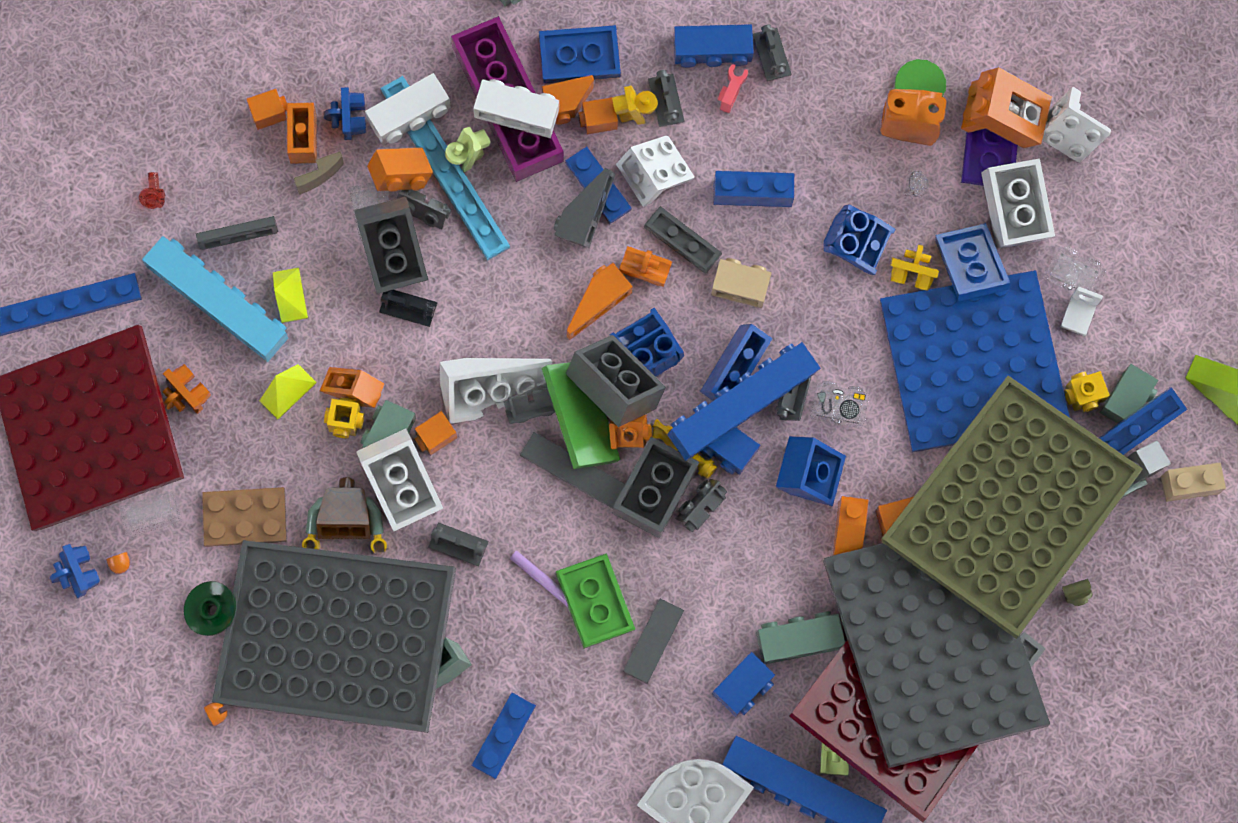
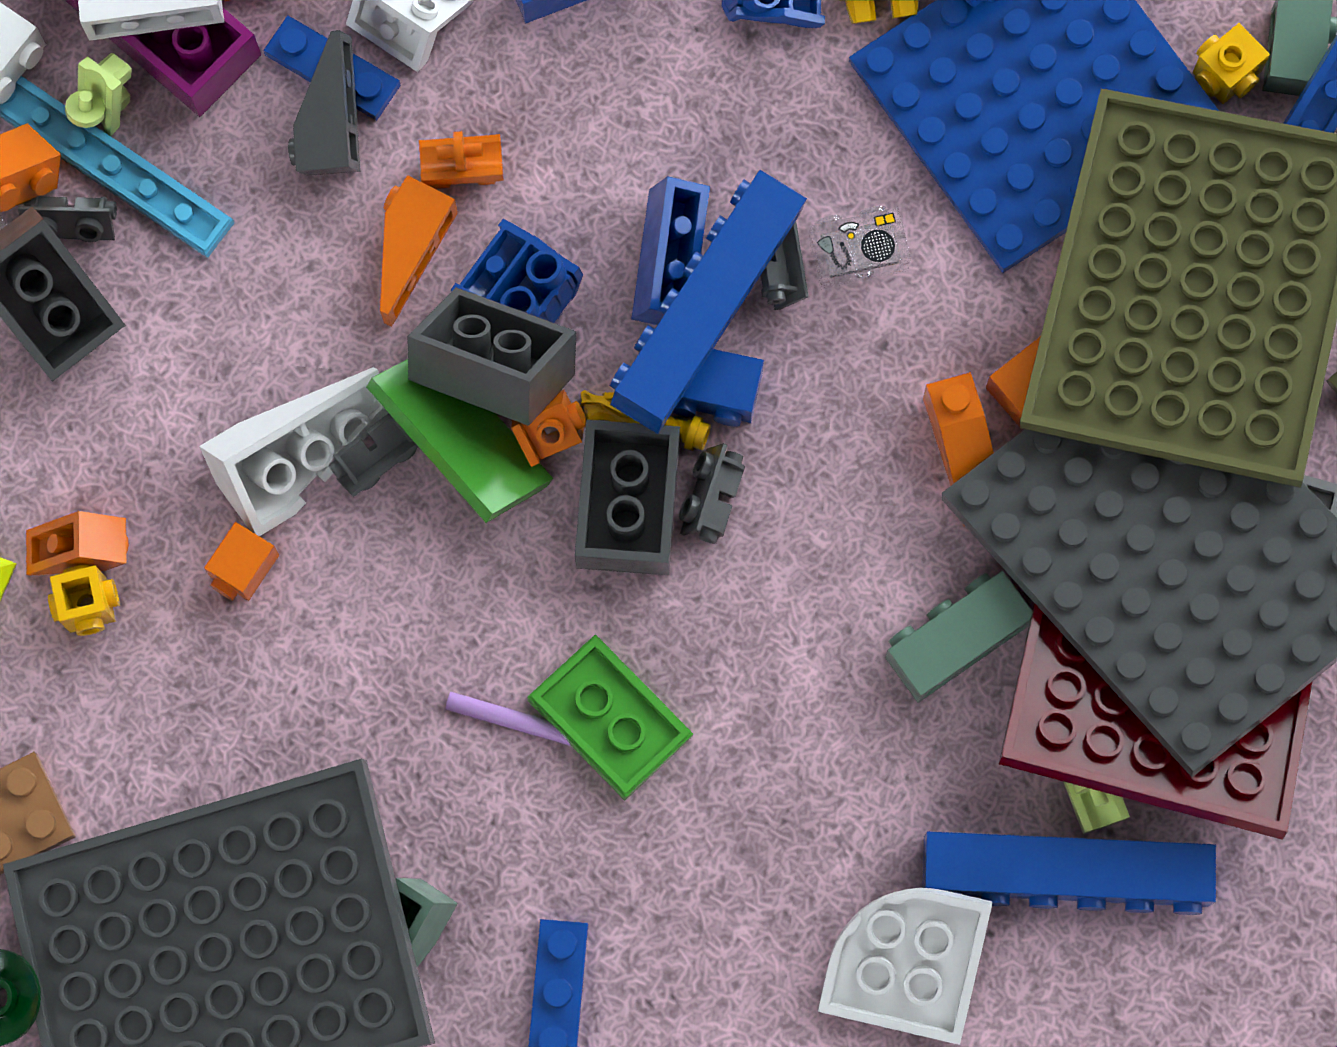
camera: 15 degrees left, 0 degrees up
(344, 515) = (149, 754): torso -> none
(388, 421) = (164, 592): sand green brick -> none
(399, 479) = (214, 658): white brick -> none
(408, 307) = (111, 383): black hinge -> none
(458, 544) = (353, 721): dark grey hinge -> none
(558, 463) = (458, 525): dark grey tile -> none
(653, 641) = (730, 740): dark grey tile -> none
(682, 240) = (501, 97): dark grey tile -> none
(741, 282) = (622, 123): tan brick -> none
(744, 684) = (903, 746): blue brick -> none
(810, 470) = (858, 366): blue slope -> none

